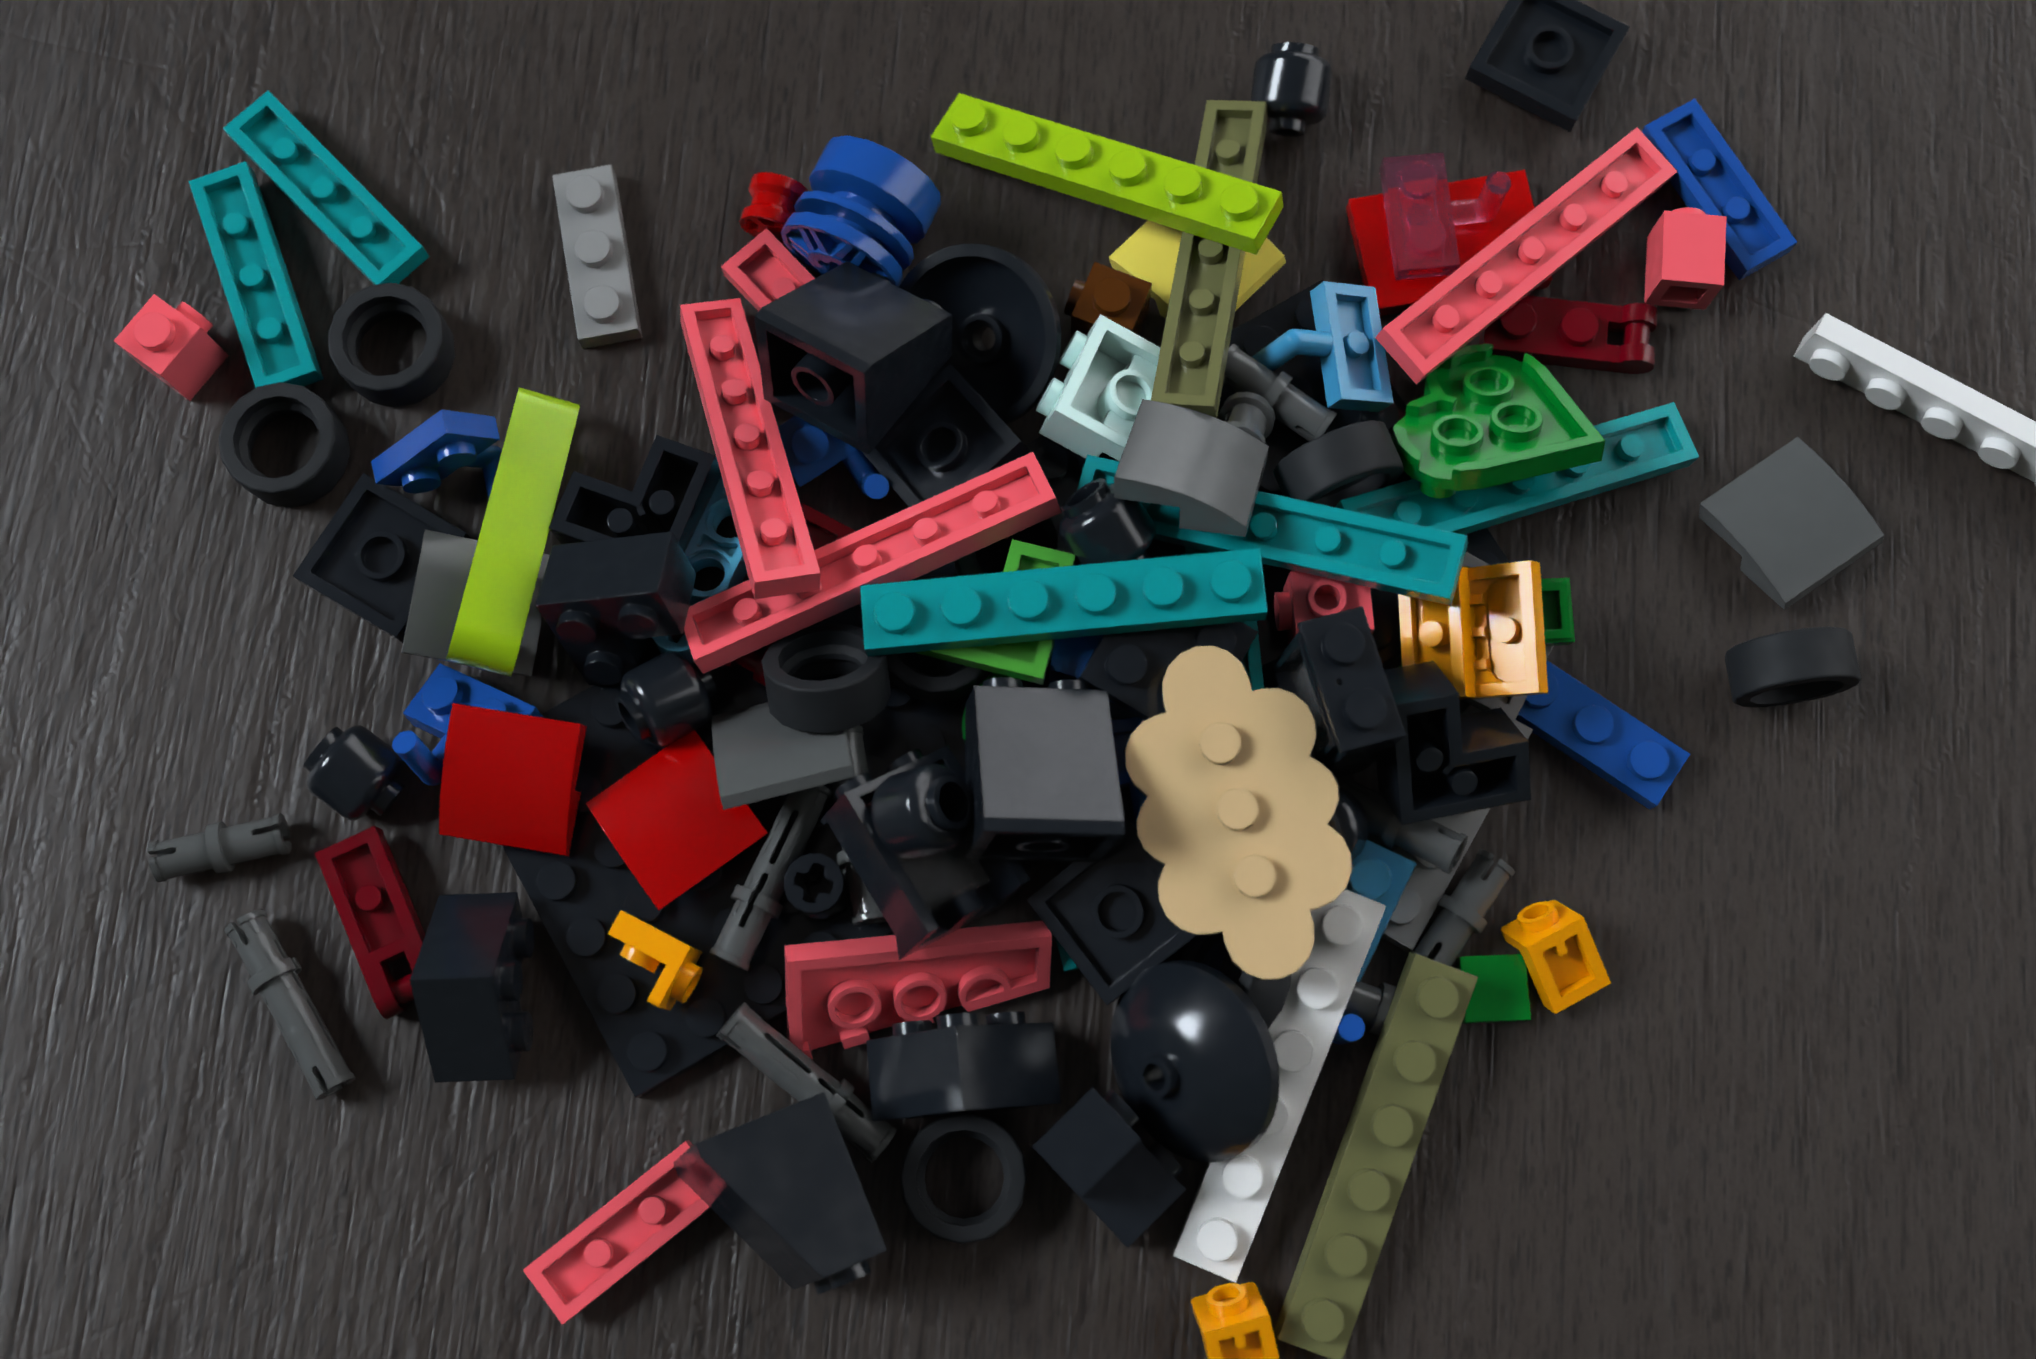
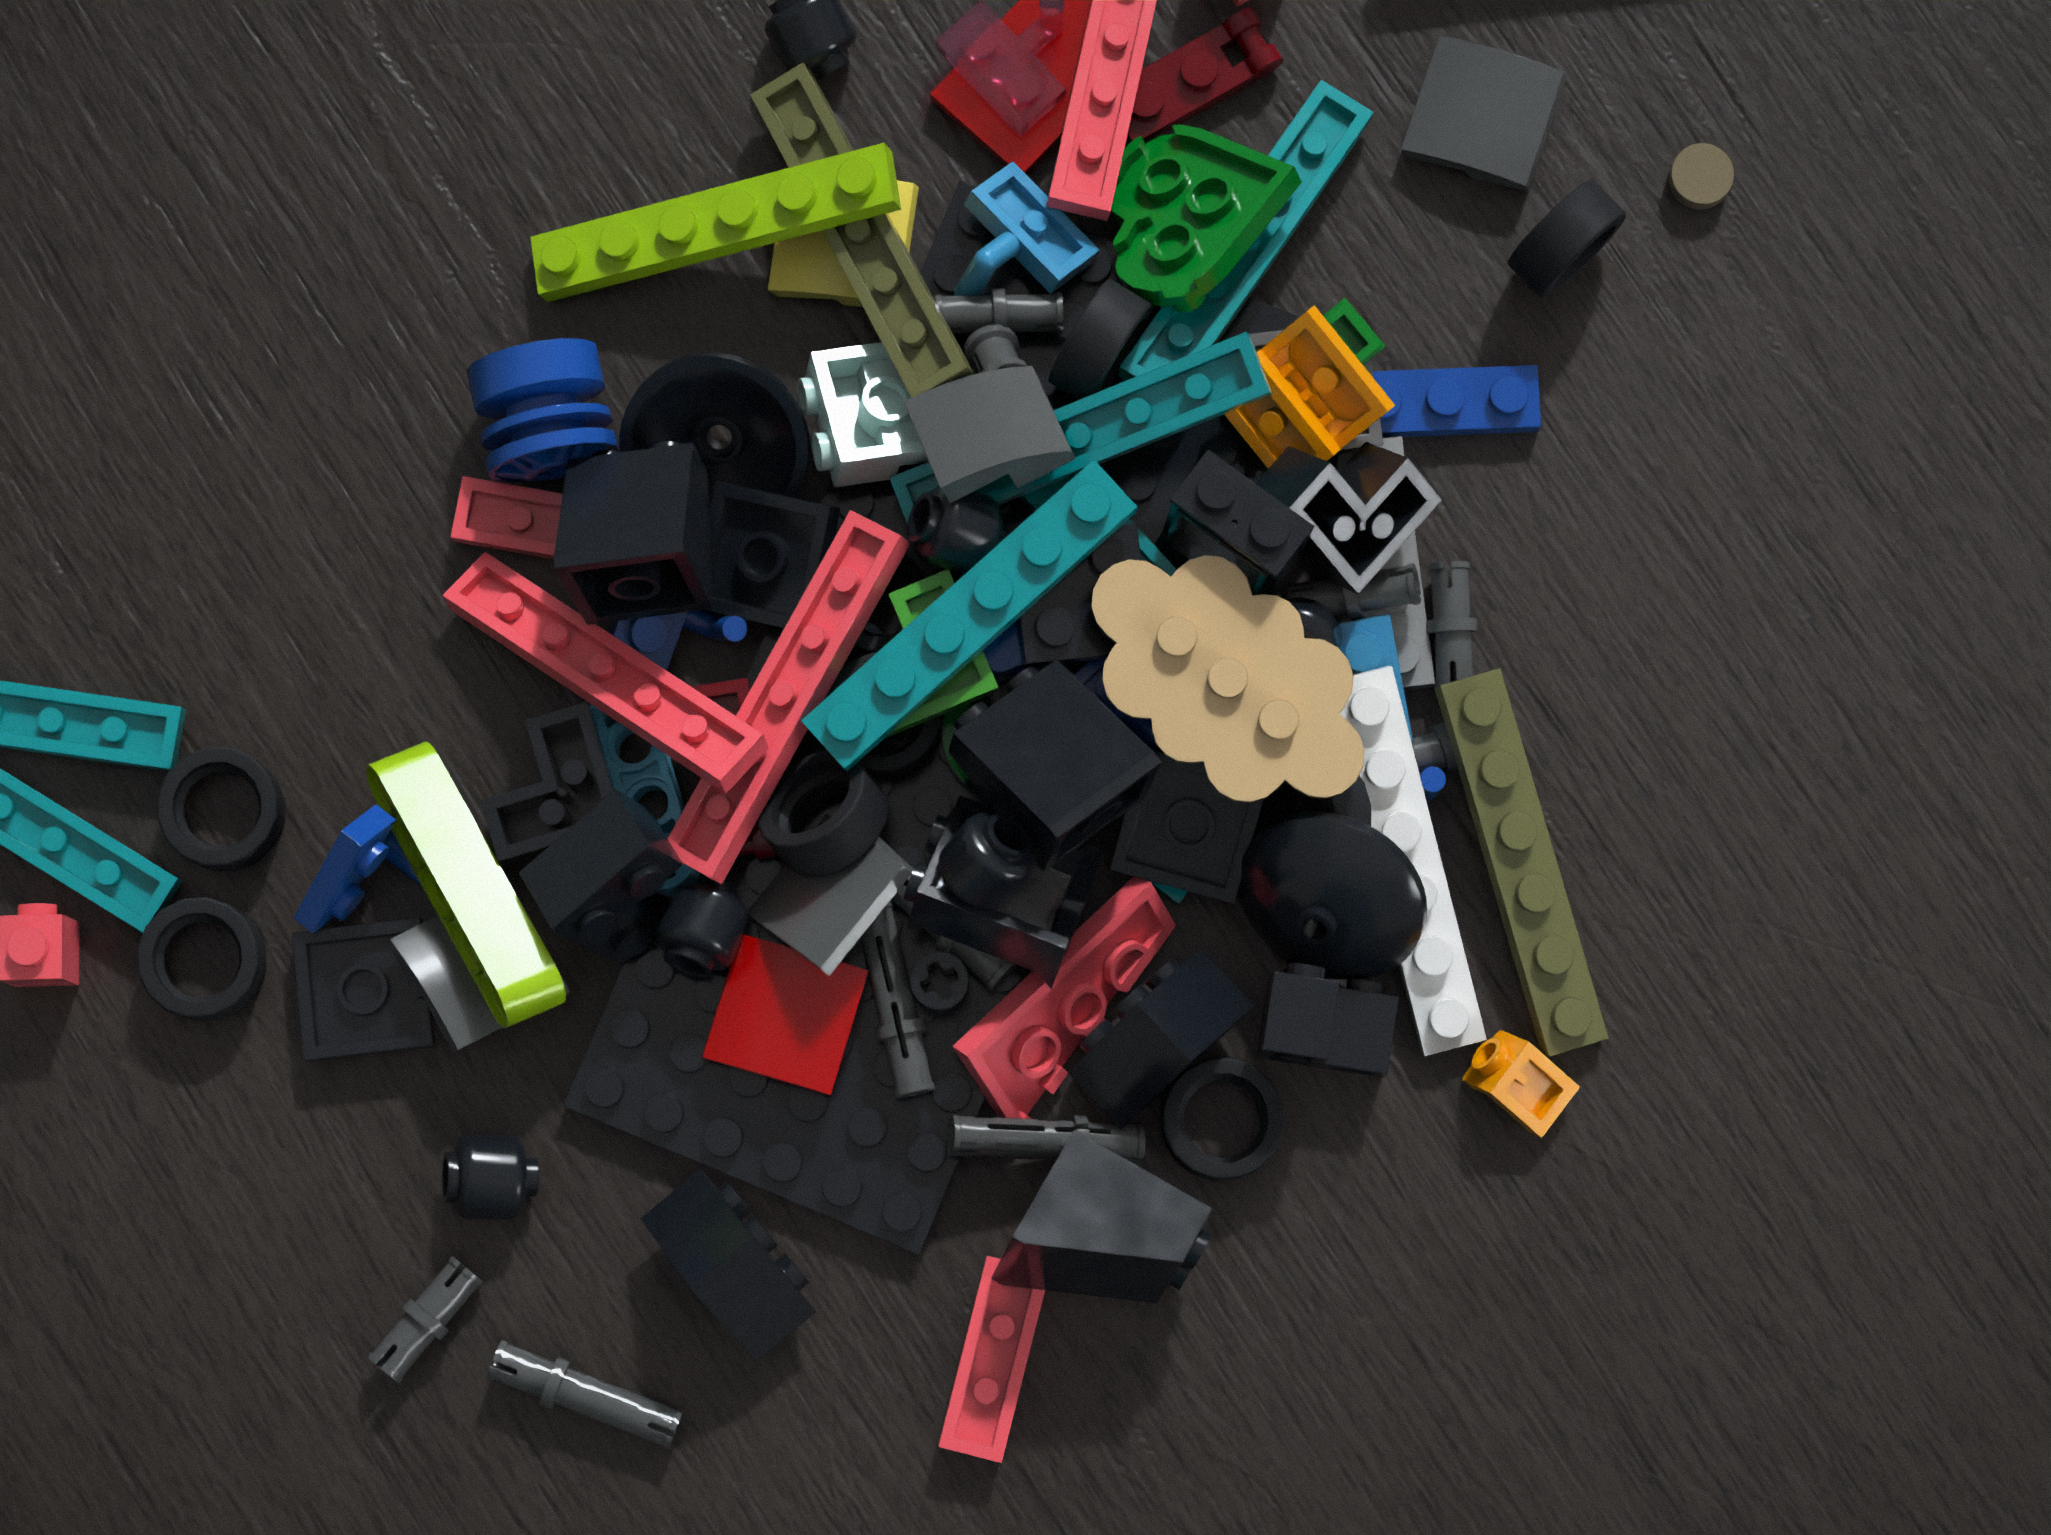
camera: 40 degrees left, 5 degrees up
(374, 913) = (602, 1275): dark red plate -> none
(432, 710) = (545, 1065): blue plate -> none
(510, 779) = (628, 1083): red slope -> none
(597, 256) = (330, 604): light grey plate -> none
(650, 946) = (845, 1130): light orange bracket -> none
(771, 203) = (453, 452): red wheel -> none
(1111, 294) = (798, 331): reddish brown brick -> none
(1315, 596) = (1162, 466): coral brick -> none
(1500, 989) = (1523, 663): green tile -> none
(1557, 953) = (1547, 602): light orange bracket -> none
(1940, 701) = (1701, 176): none -> dark tan tile

